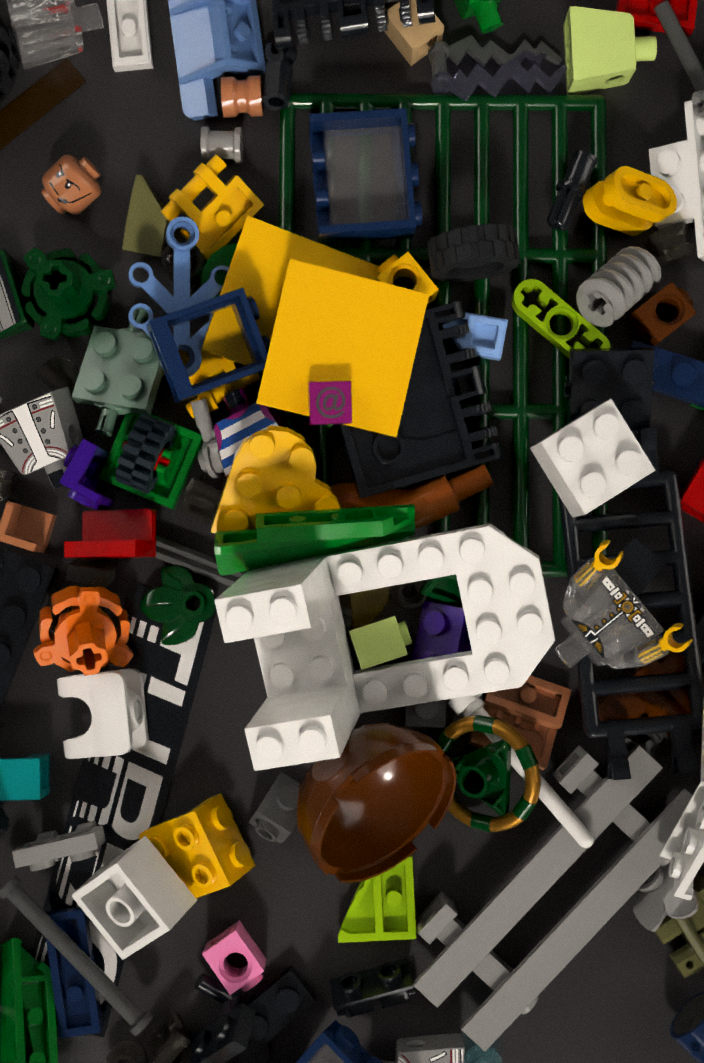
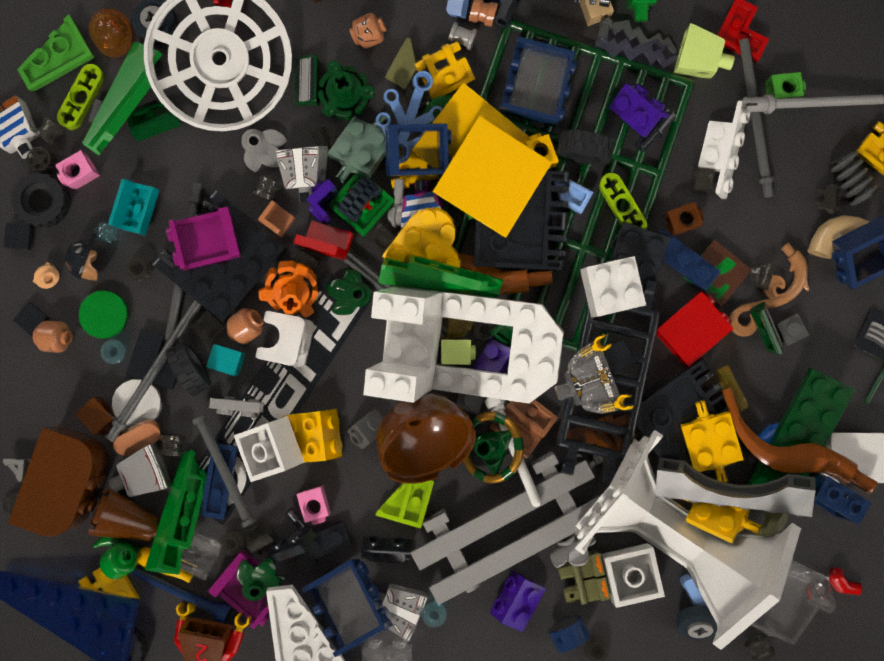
camera: 20 degrees right, 0 degrees up
(32, 713) = (244, 326): none -> nougat head
(329, 402) = (474, 205): magenta tile -> none
(534, 166) = (638, 108): none -> dark purple bracket
(605, 1001) = (517, 601): none -> dark purple bracket
(618, 286) = (663, 193): light grey piece -> none
(629, 201) = (686, 147): yellow brick -> none

